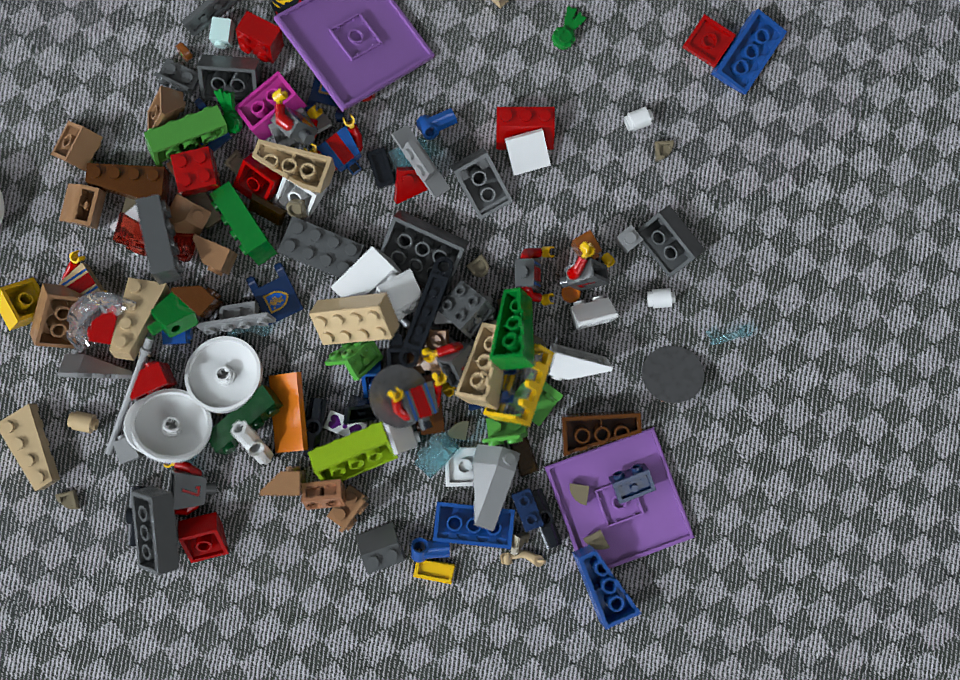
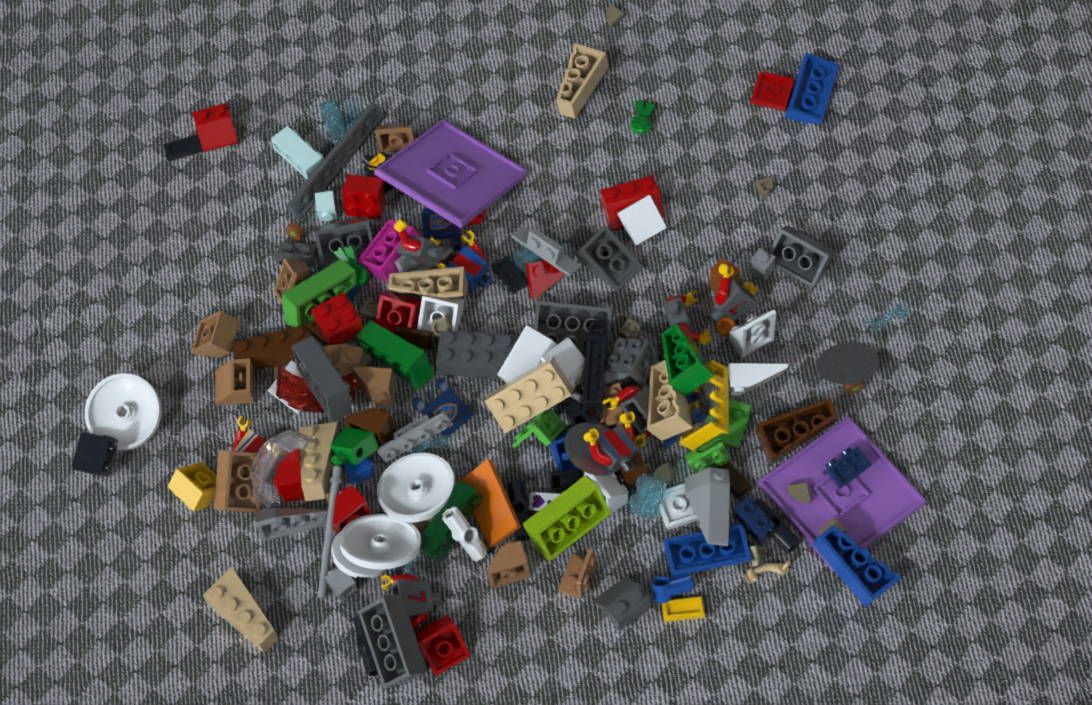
camera: 15 degrees left, 25 degrees down
(69, 499) = (292, 653): dark tan tile -> none
(83, 421) = (288, 573): tan brick -> none
(323, 494) = (549, 562): nougat brick -> none
(431, 126) = (549, 221): blue piece -> none
(638, 119) = (733, 167): white brick -> none
(660, 298) = (811, 304): white brick -> none

